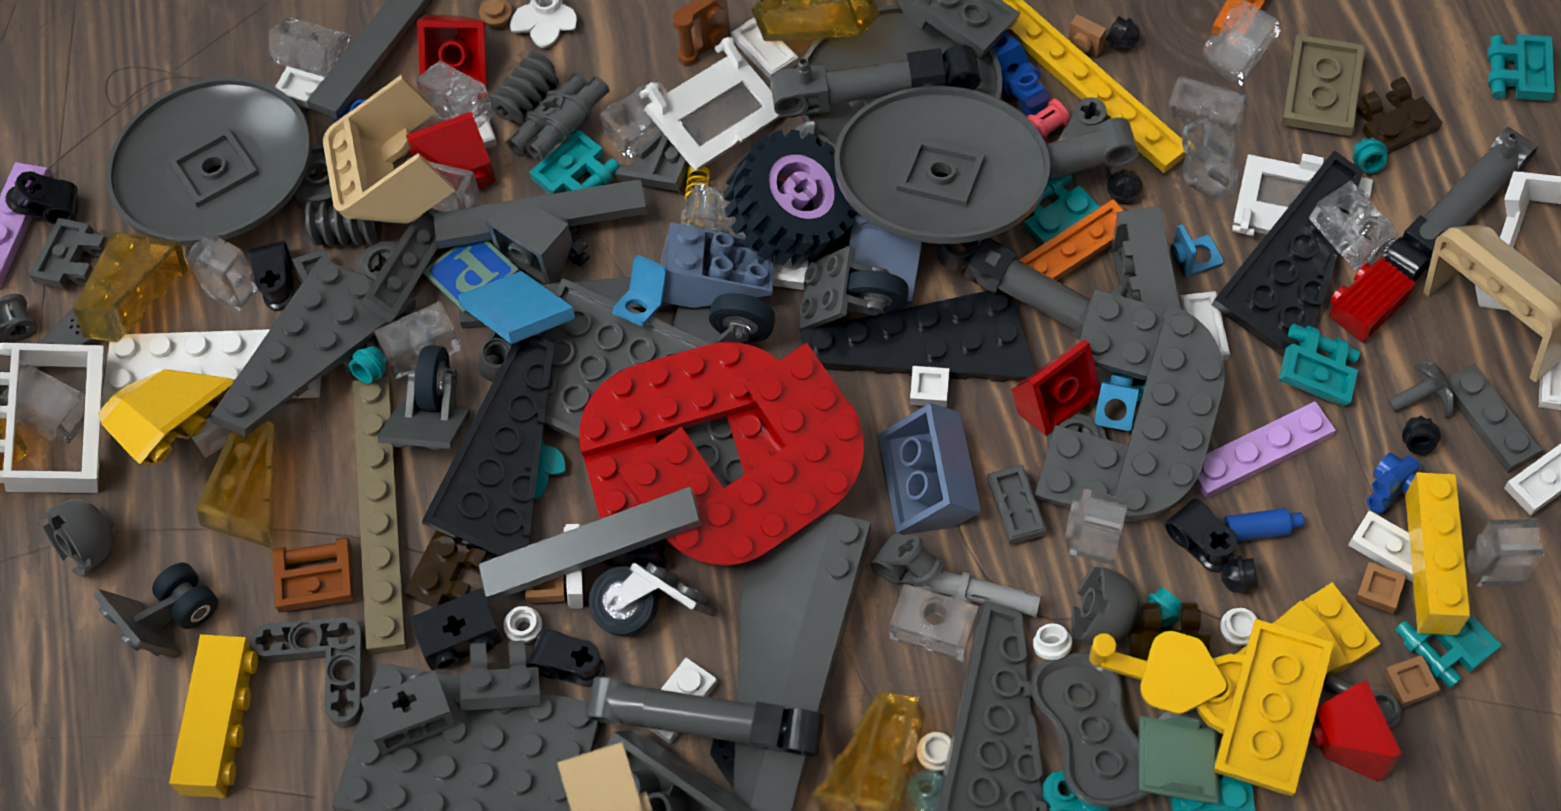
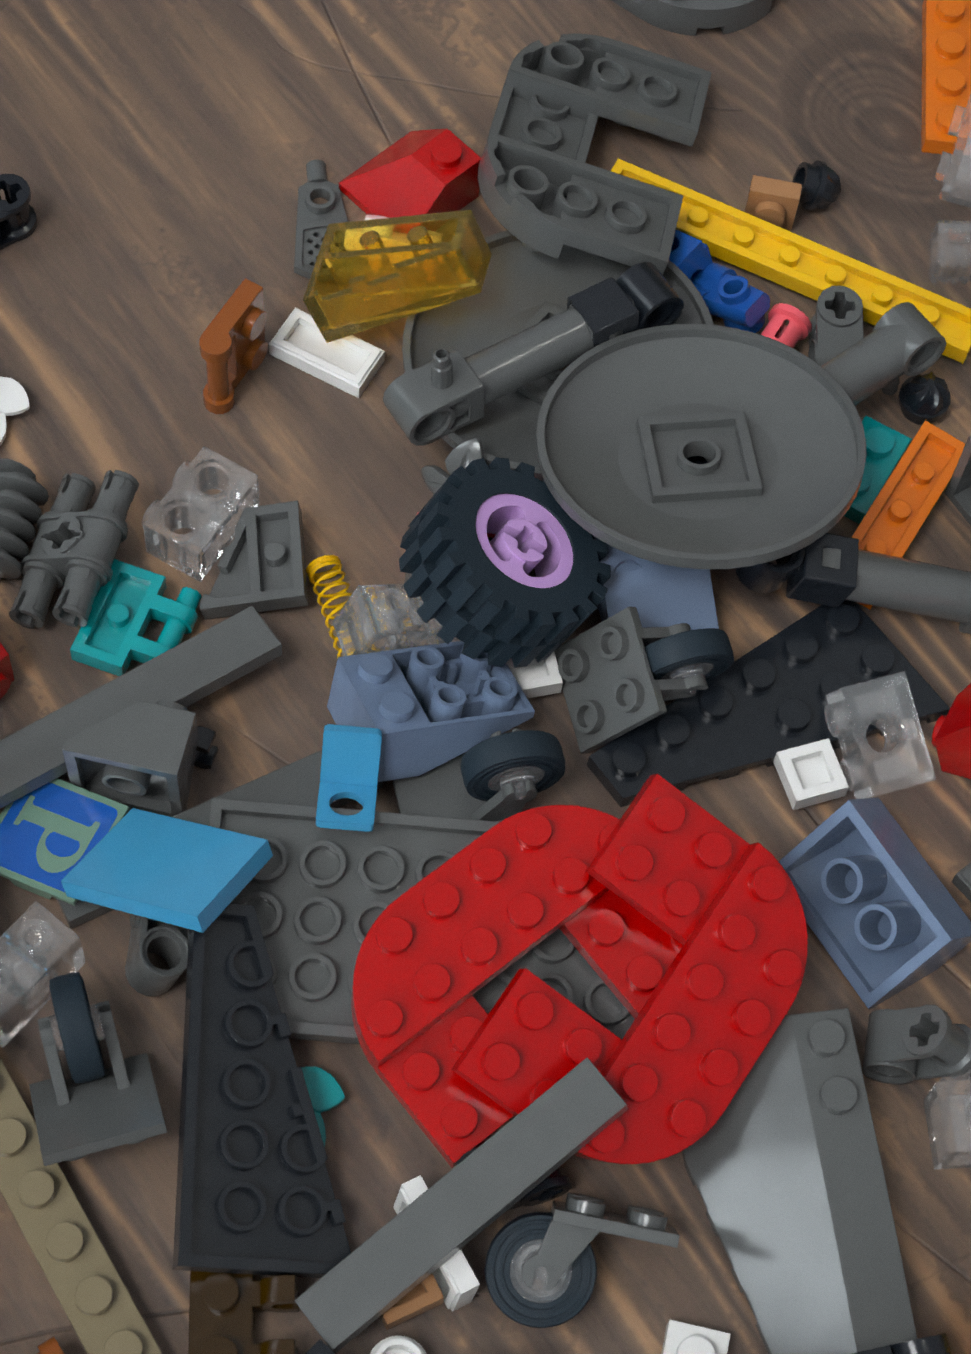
camera: 35 degrees left, 0 degrees up
(713, 108) = (308, 464): white piece -> none
(984, 355) = (891, 708): none -> clear brick

